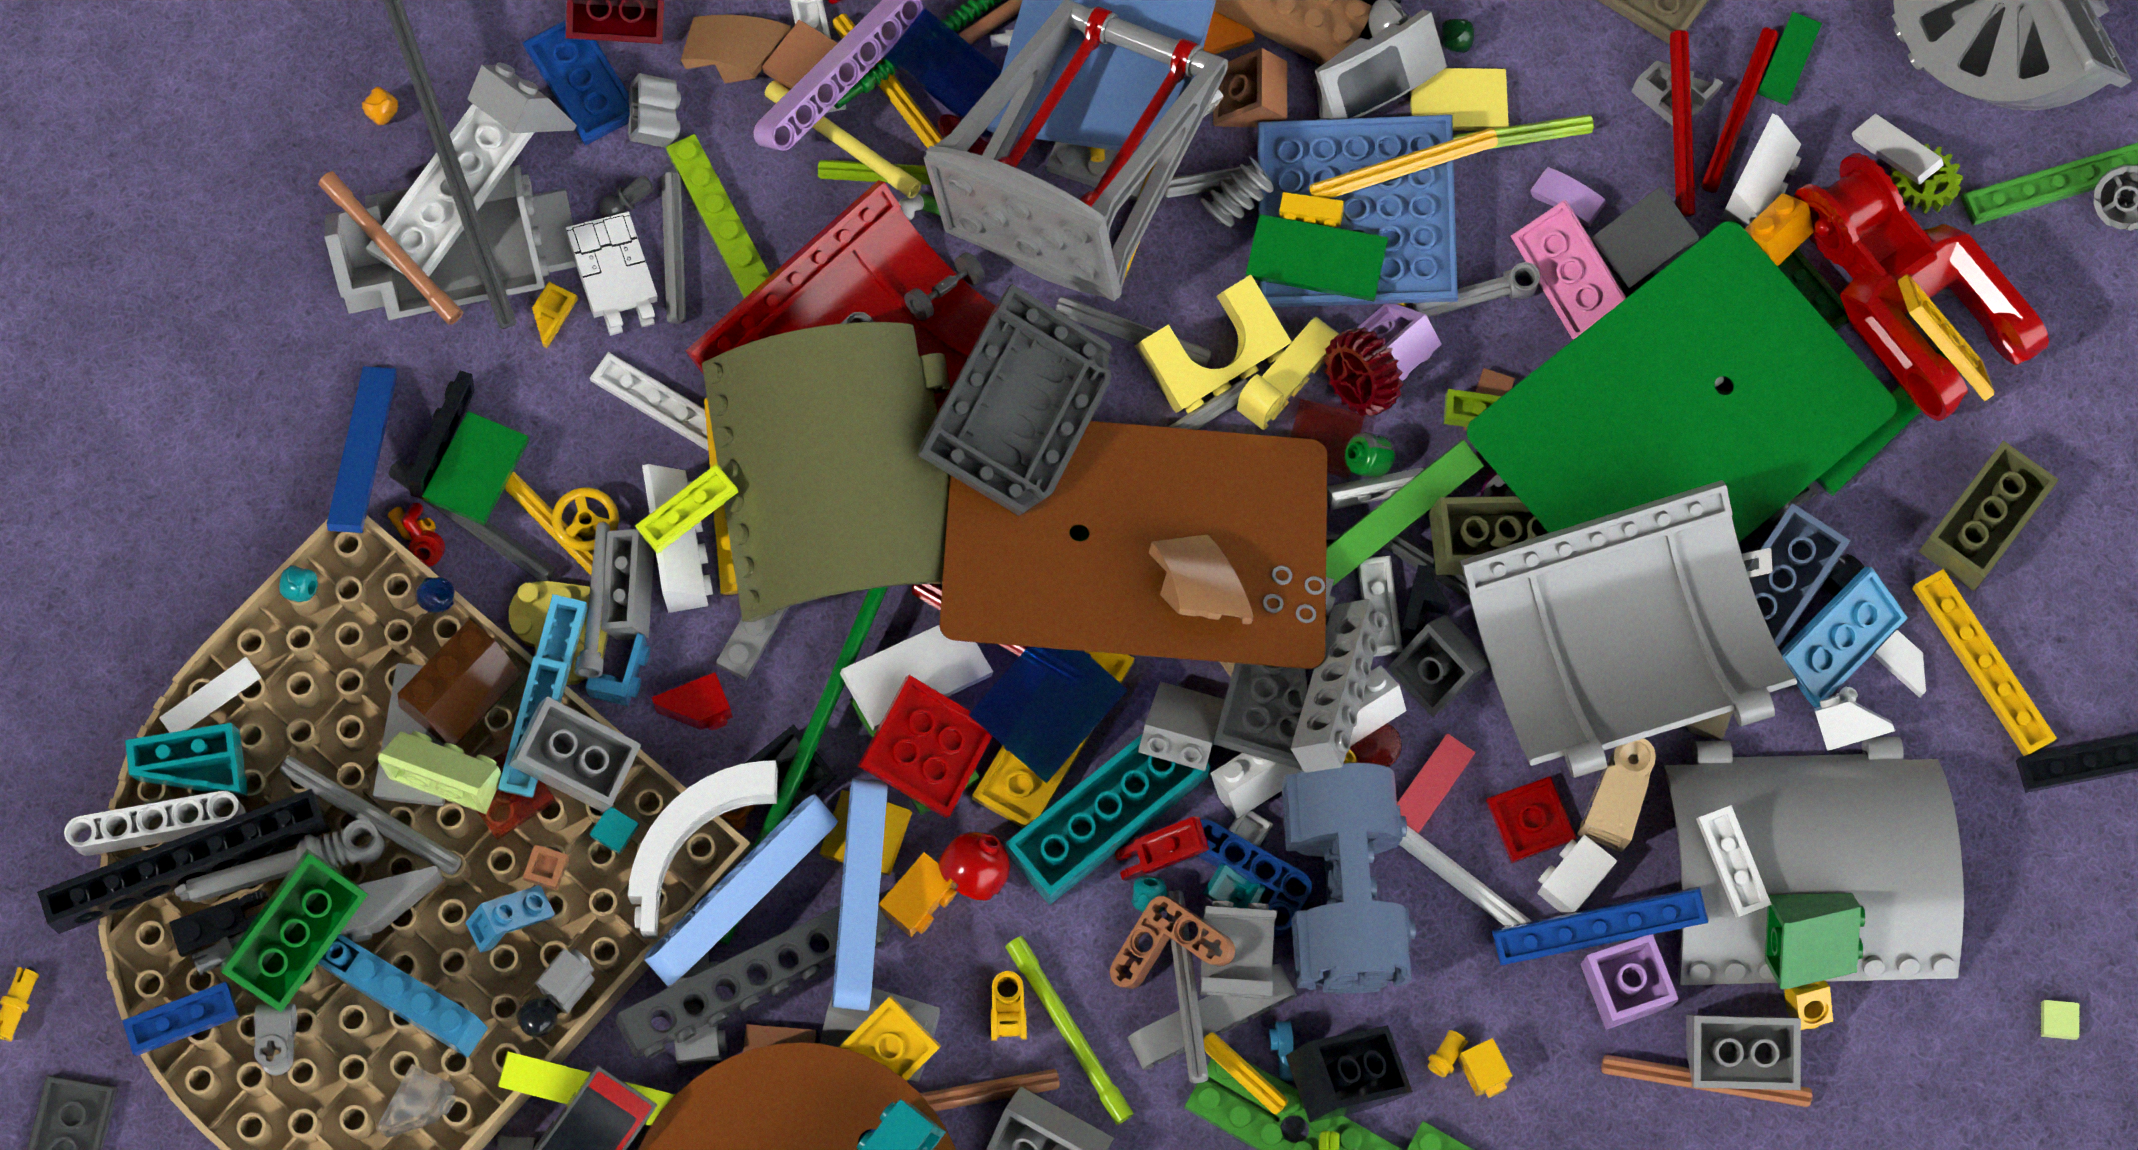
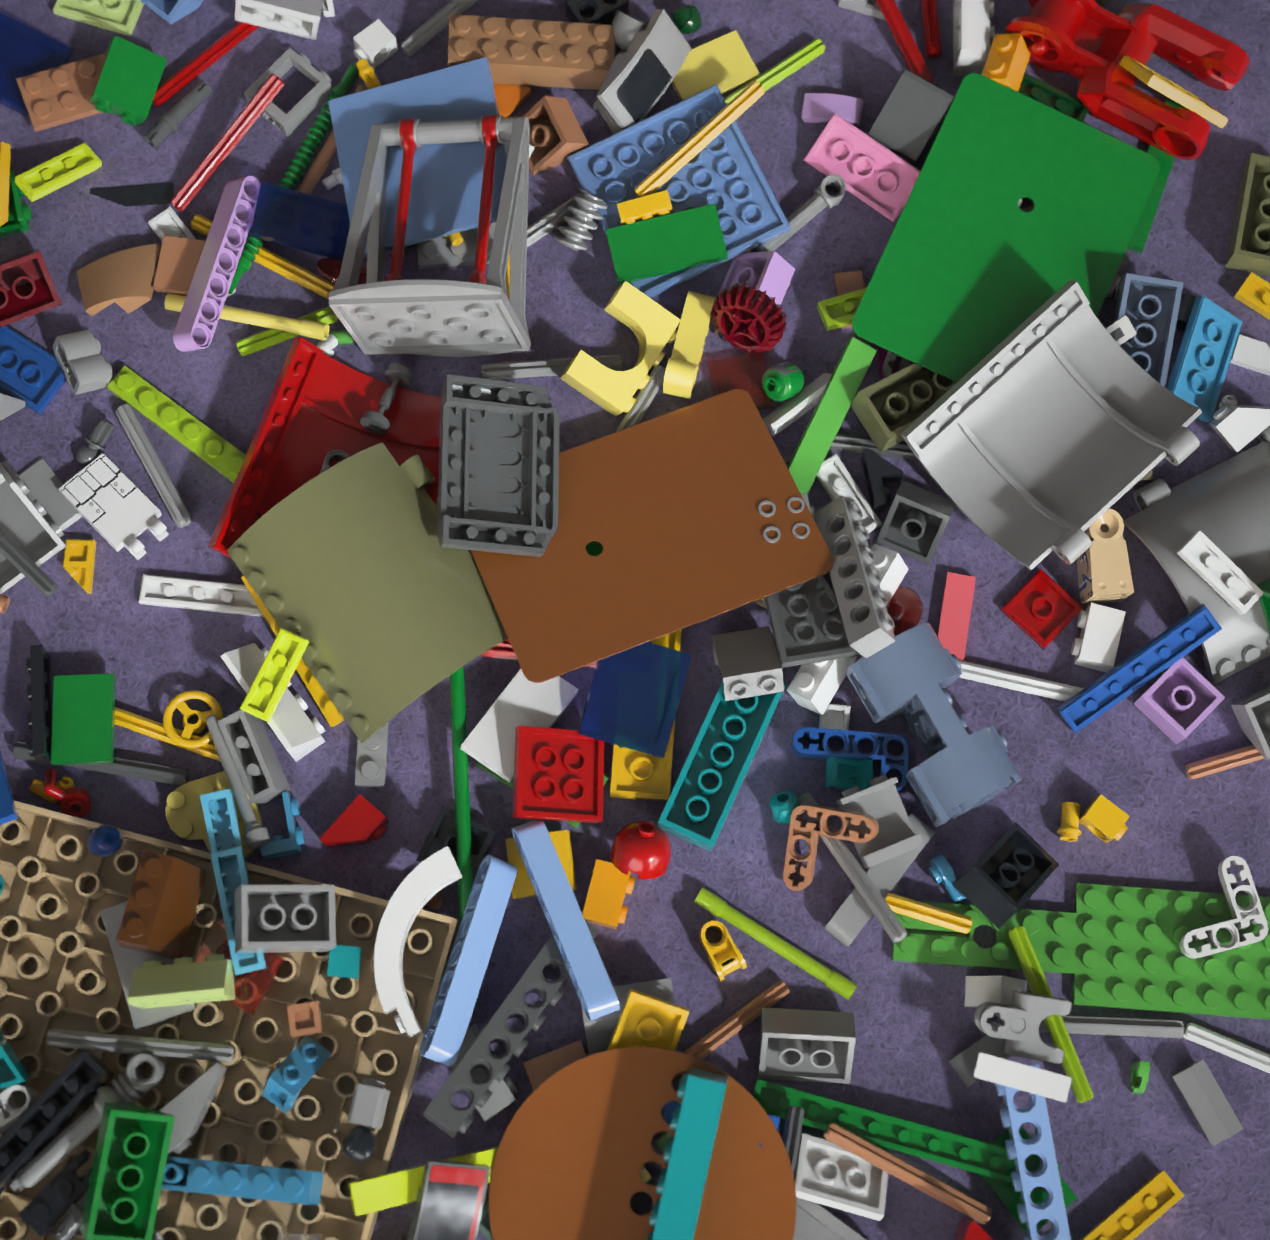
camera: 25 degrees left, 5 degrees up
(1164, 847) = (780, 765): red hinge -> none
(1200, 579) = (709, 542): medium nougat slope -> none

